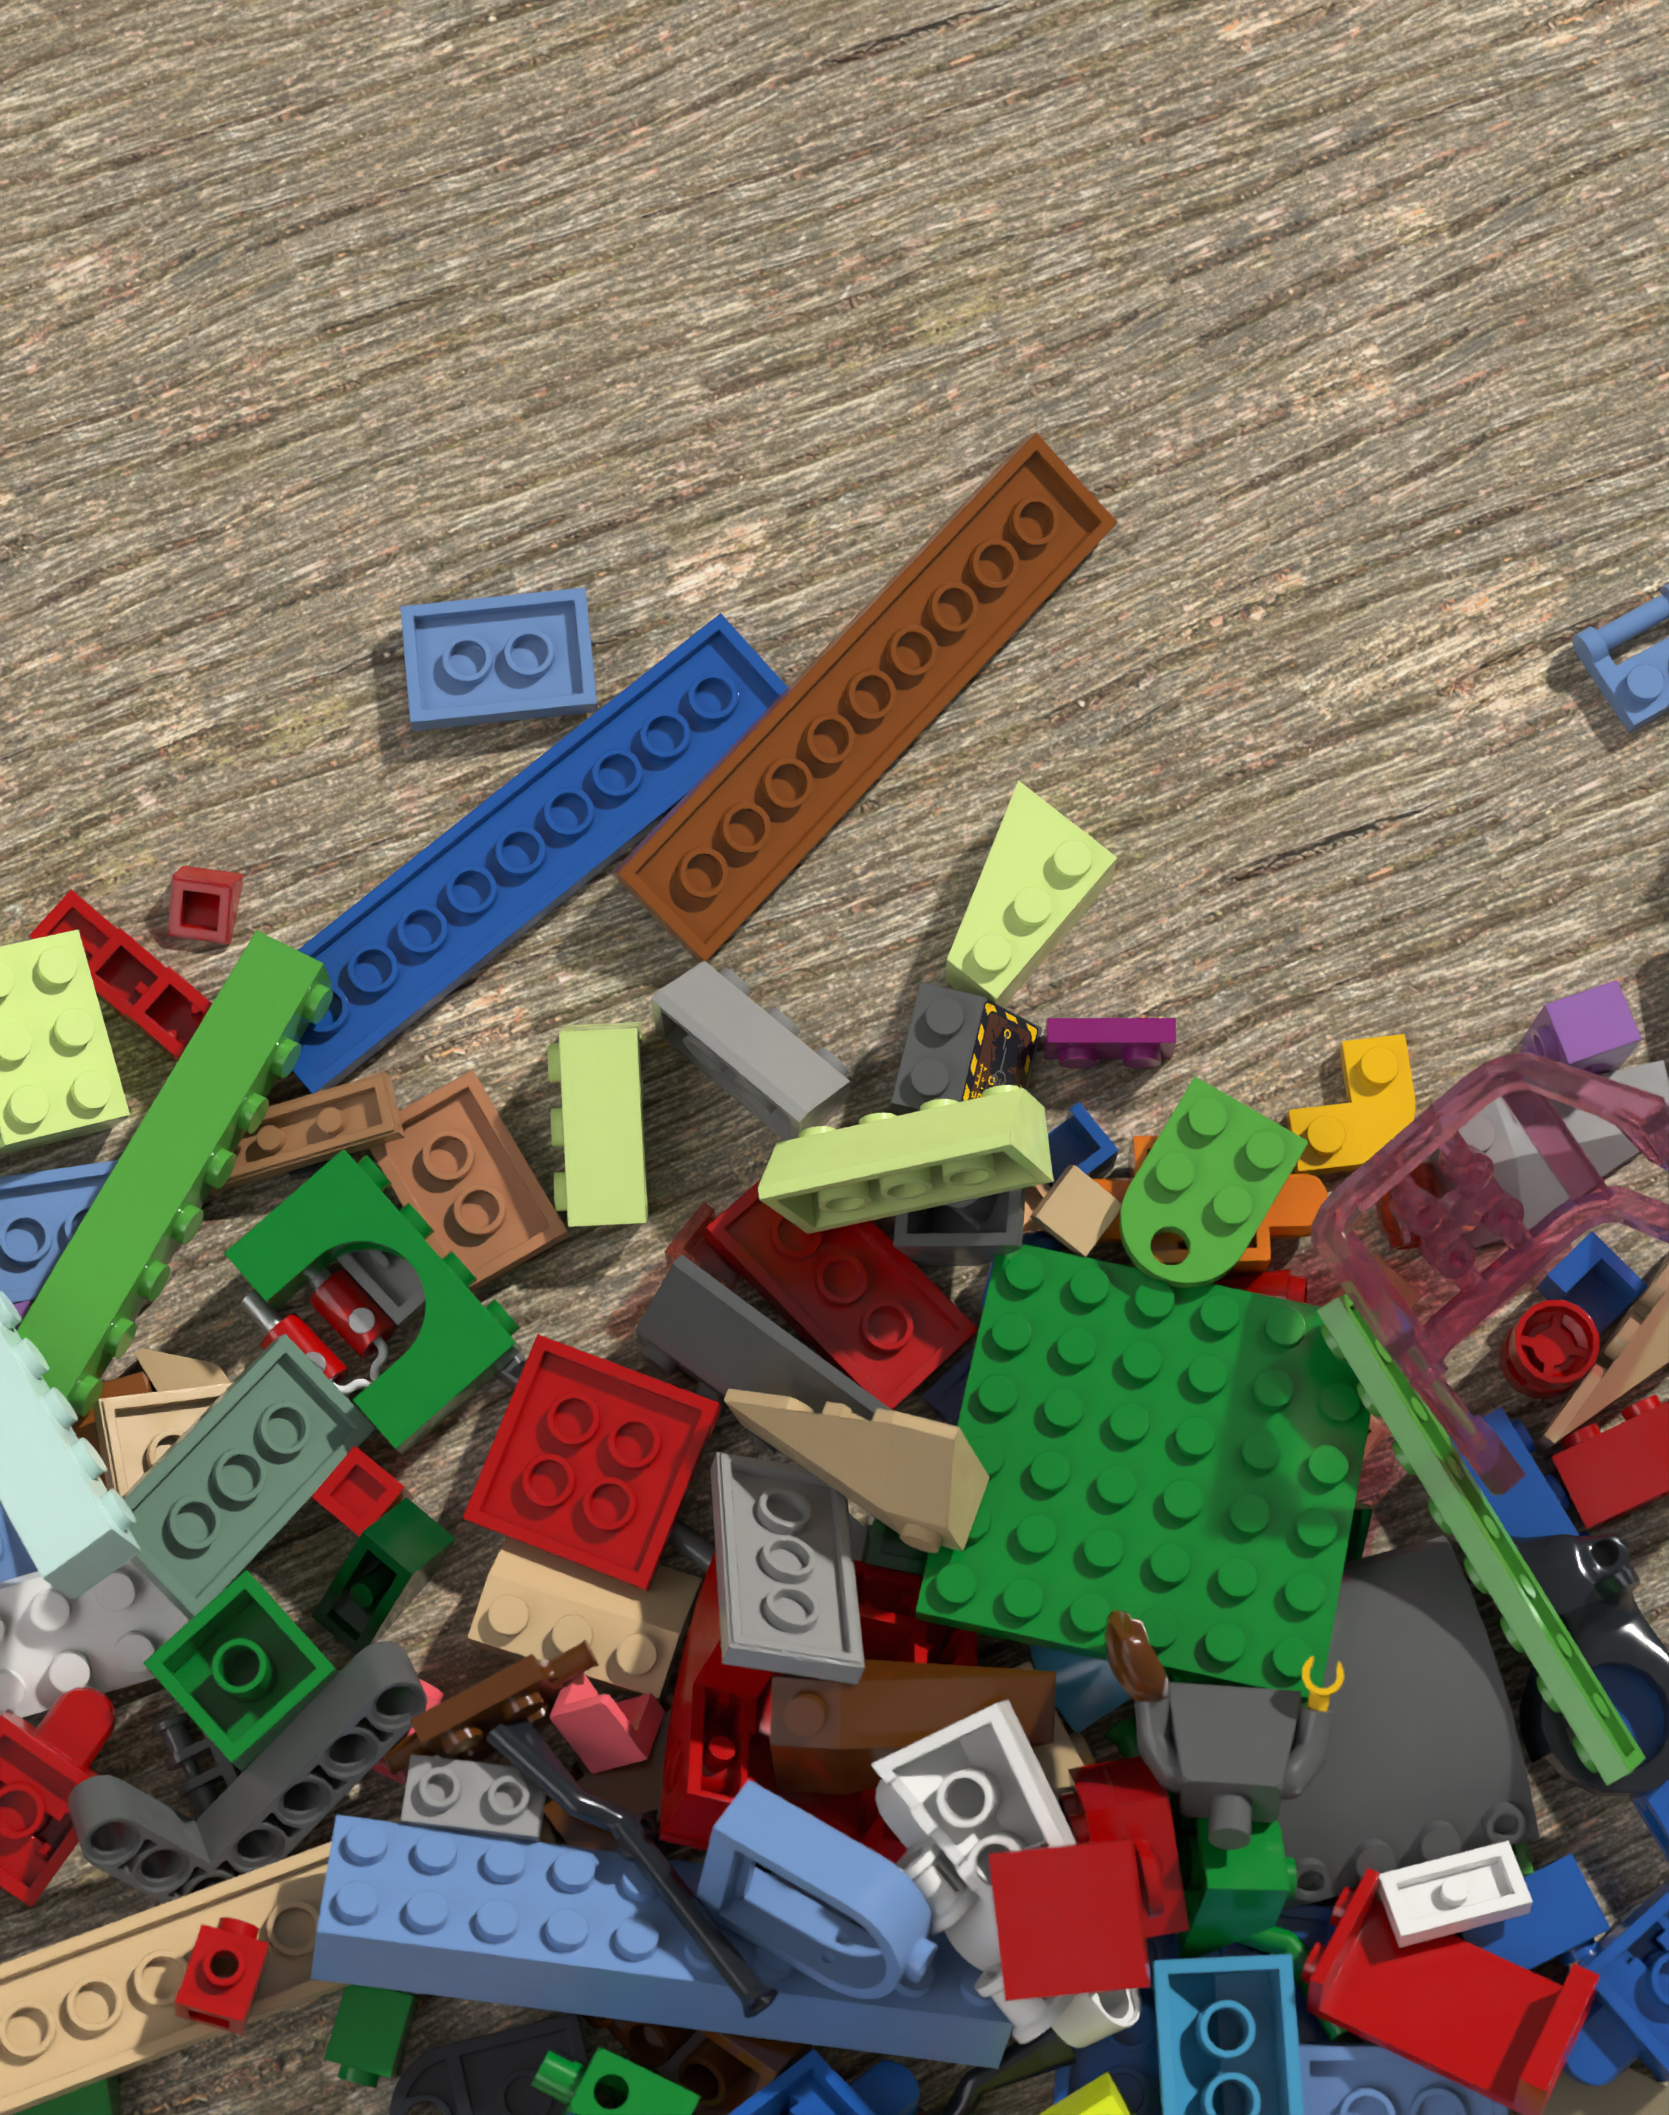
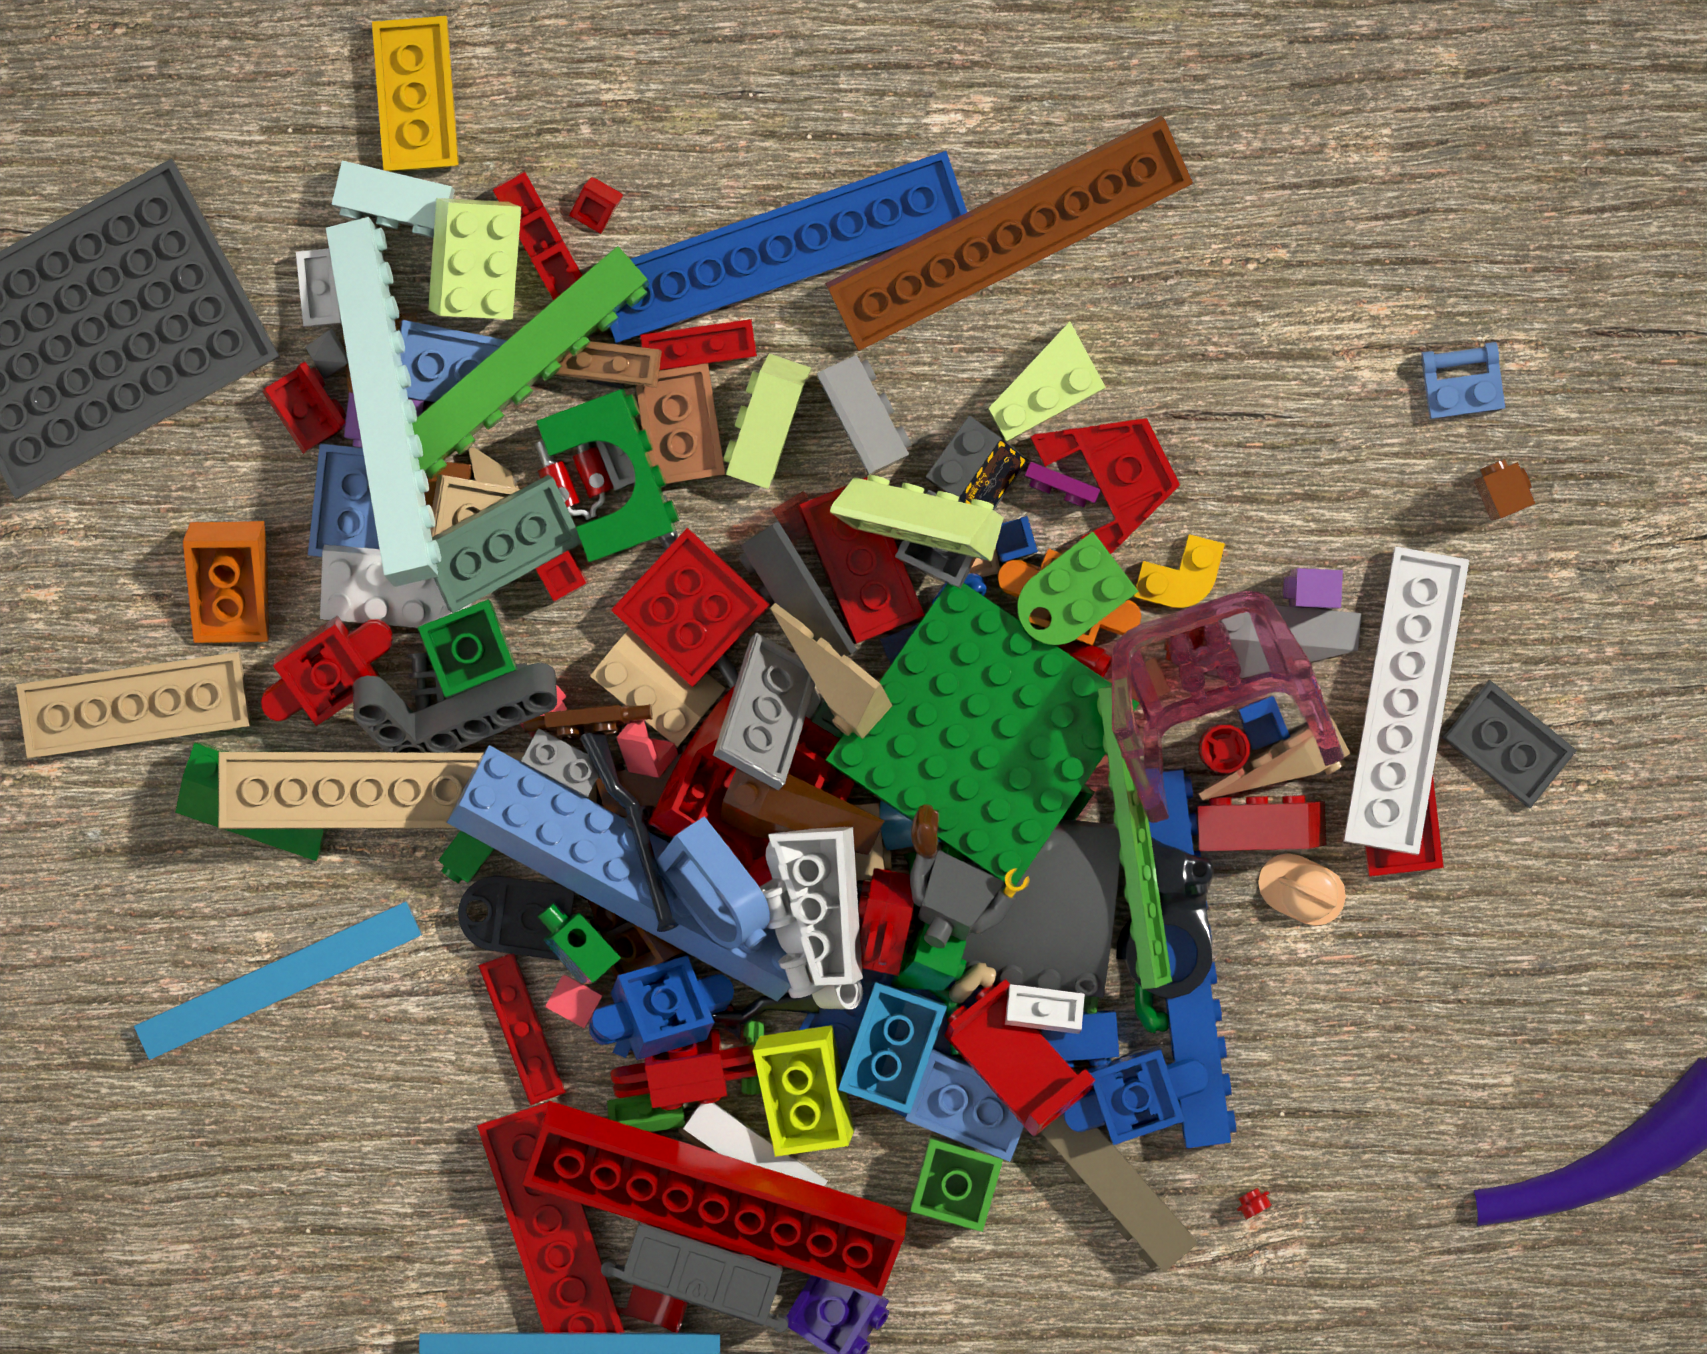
camera: 15 degrees right, 15 degrees up
(216, 2000) = (393, 813): red brick -> none
(382, 1575) = (557, 622): dark green slope -> none
(456, 1043) = (703, 344): none -> red plate
(498, 659) = (812, 126): medium blue plate -> none
(1069, 1919) = (835, 951): red tile -> none
(1076, 1211) = (1000, 577): tan tile -> none
(1187, 966) = (1125, 466): none -> red wing
(1317, 1880) = (970, 980): none -> tan arm
(1617, 1838) = (1144, 1009): none -> green arm

